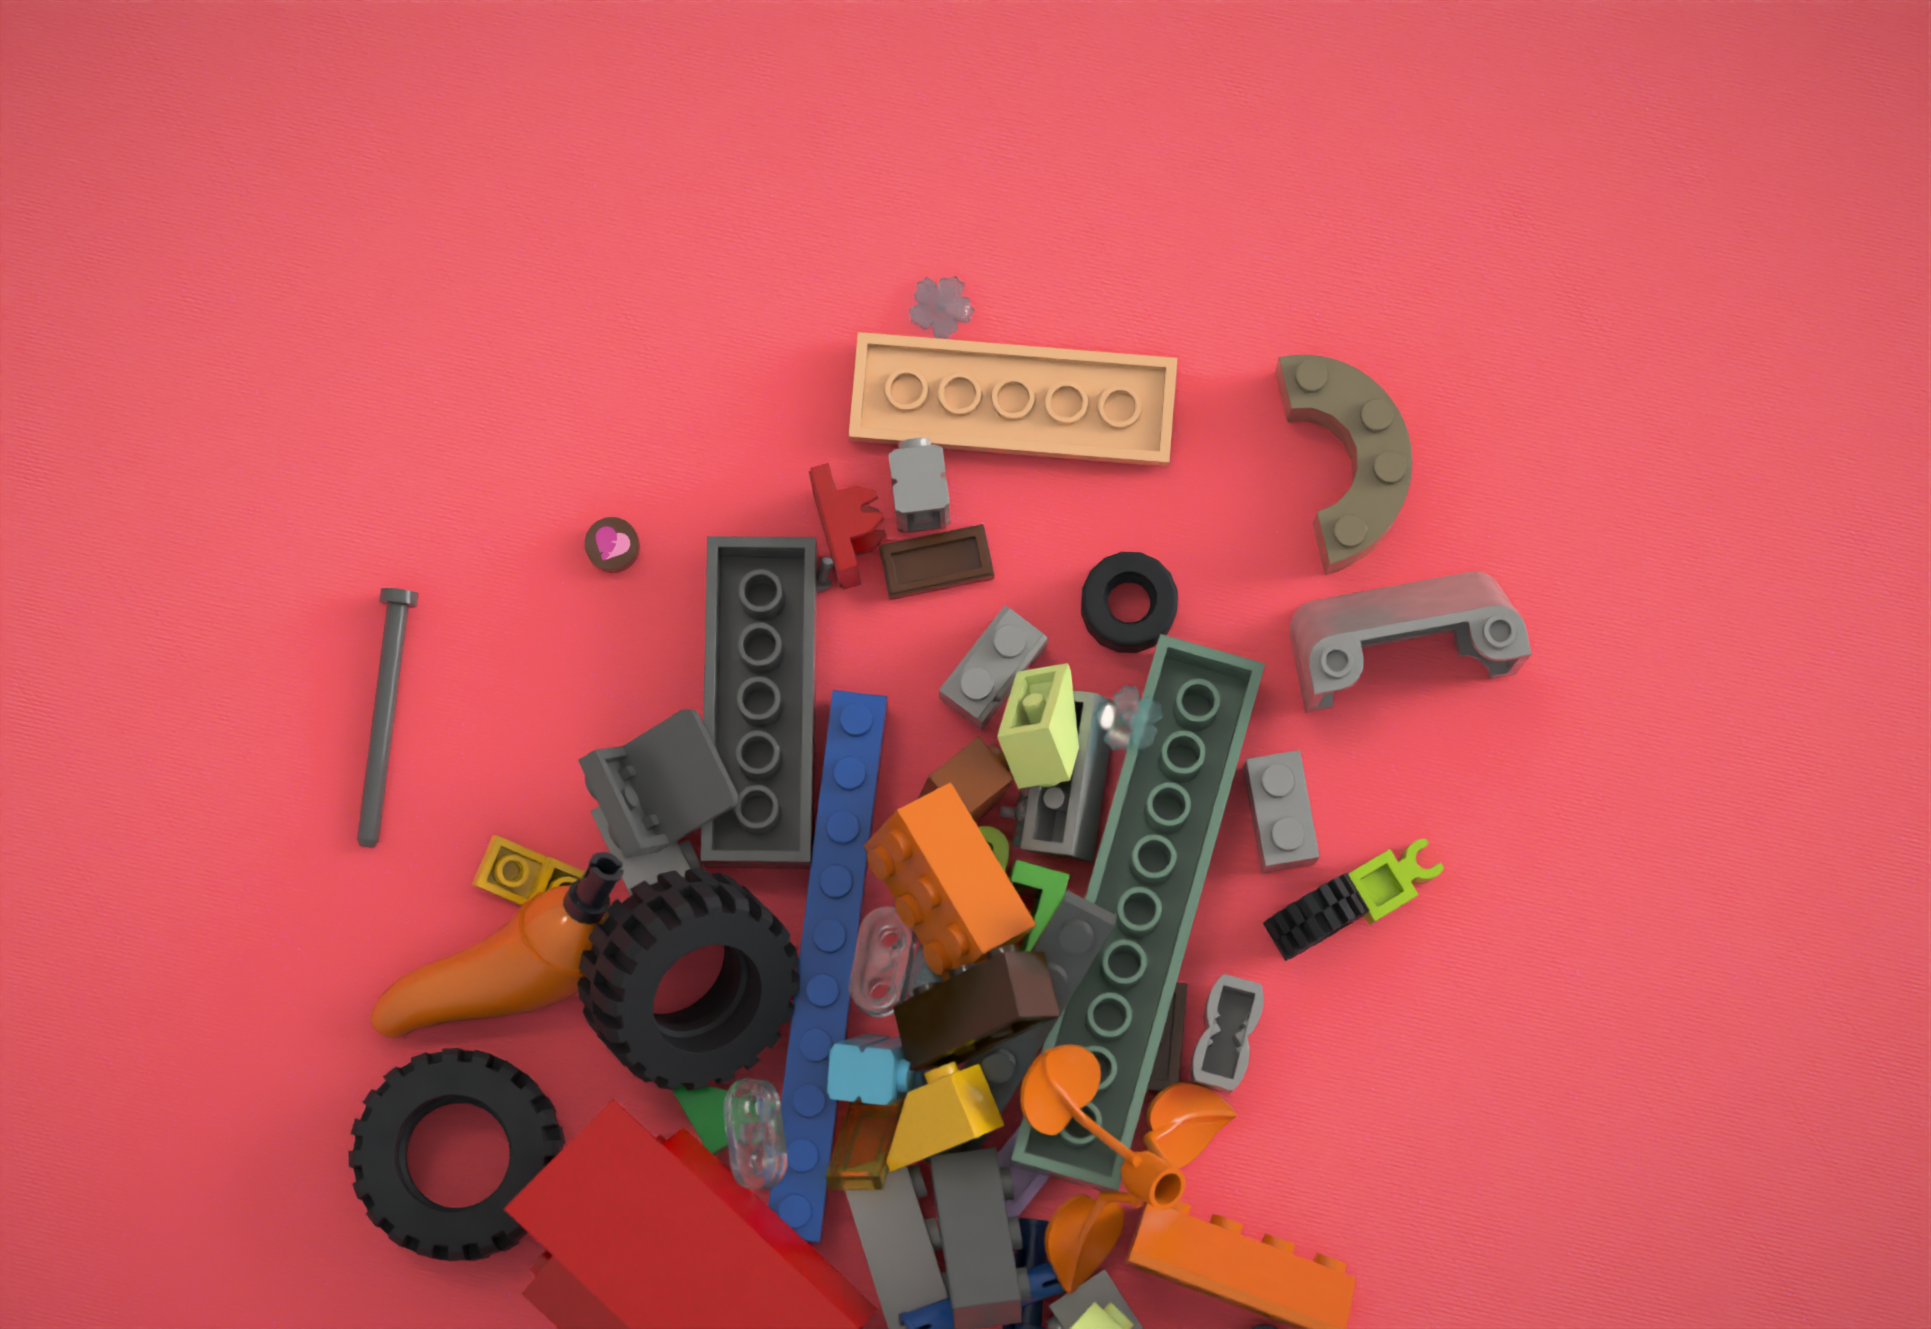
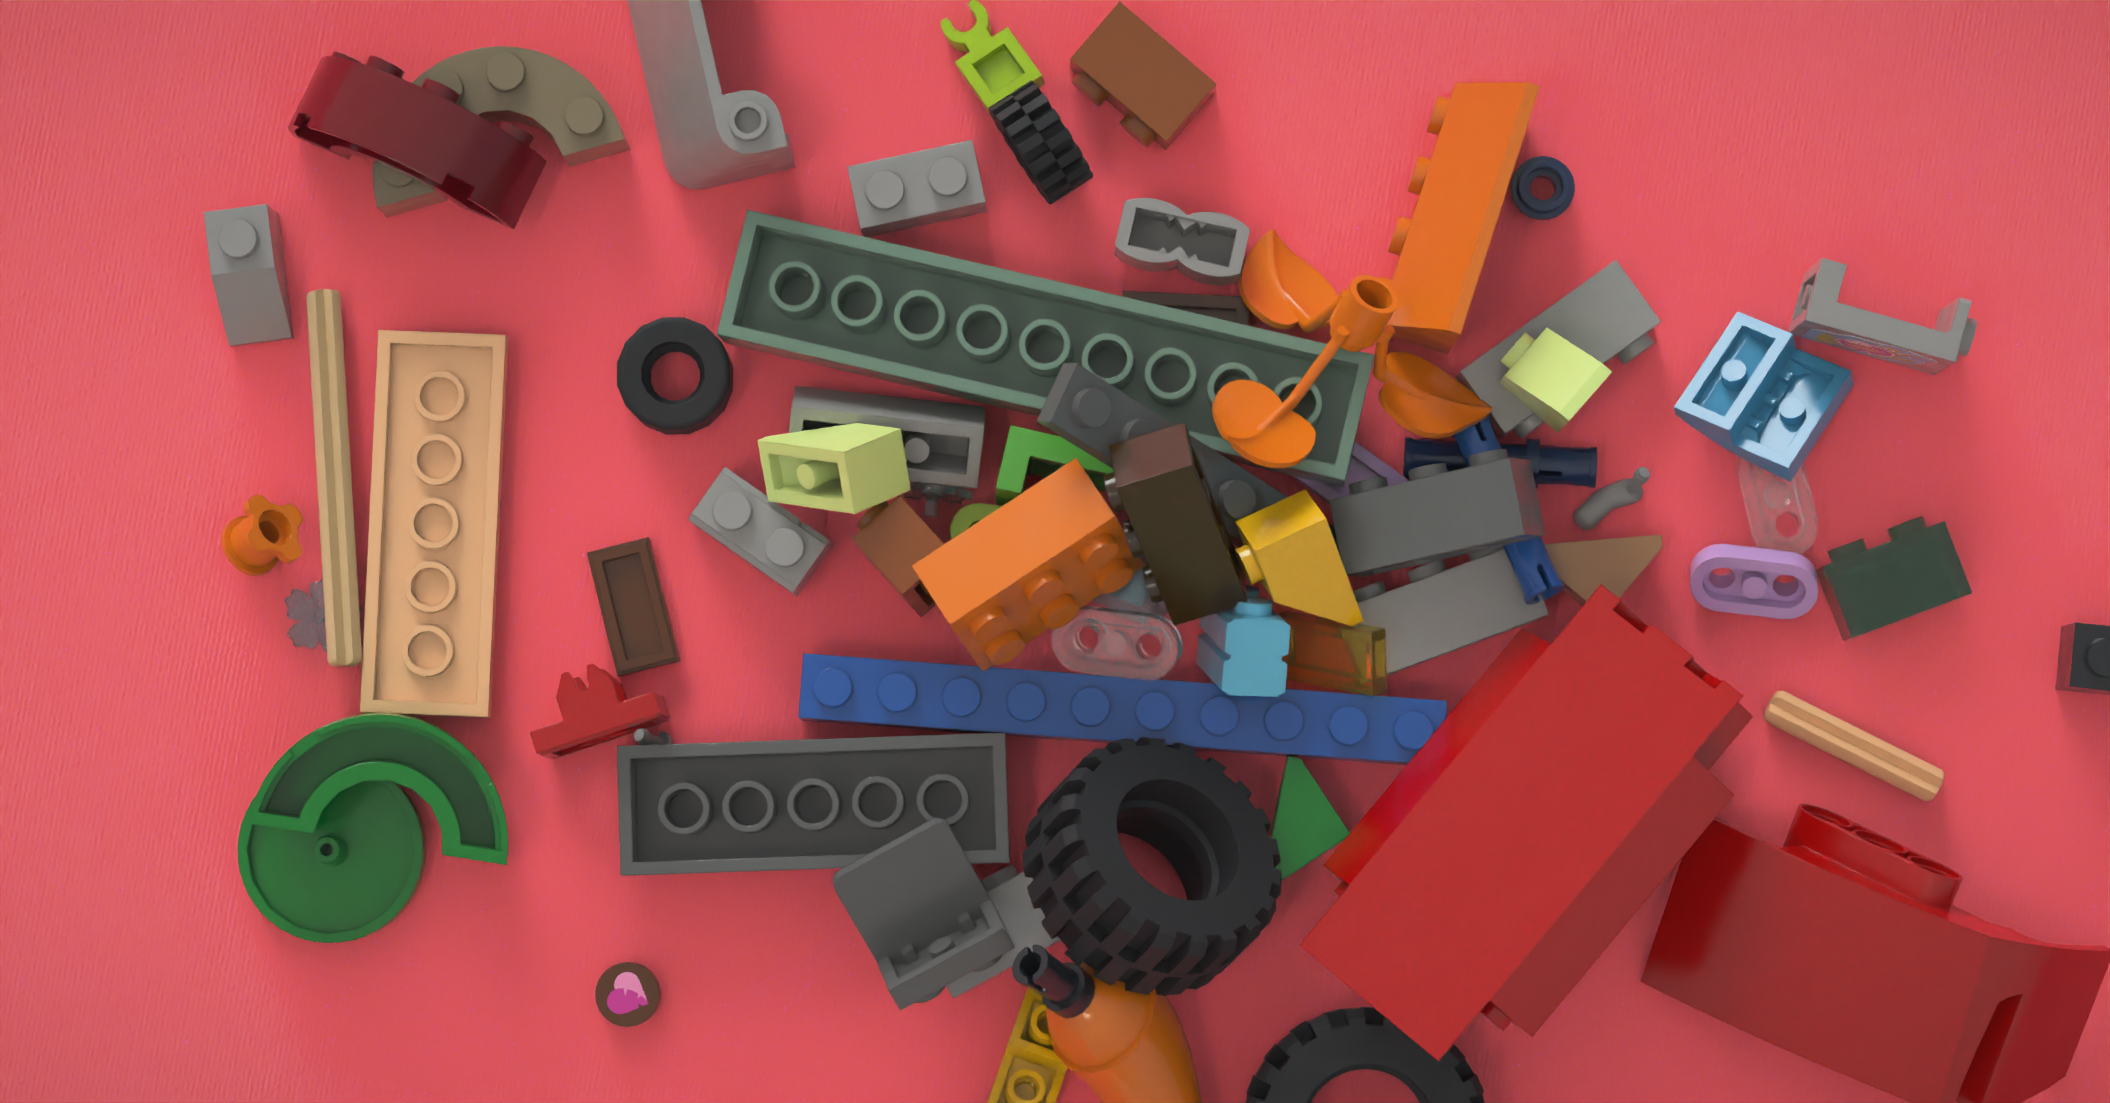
camera: 90 degrees left, 5 degrees up
(745, 307) = (345, 875): none -> green piece
(755, 1134) = (1327, 780): clear plate -> none
(822, 355) = (392, 750): none -> green brick
(919, 486) = (547, 627): light grey brick -> none
(1007, 257) = (262, 536): none -> orange brick
(1055, 318) = (334, 478): none -> tan axle
(1129, 719) = (821, 365): clear light blue plant -> none
(1229, 254) = (249, 274): none -> light grey slope
(1337, 393) = (420, 134): none -> dark red brick
(1371, 1007) = (1140, 78): none -> dark orange brick

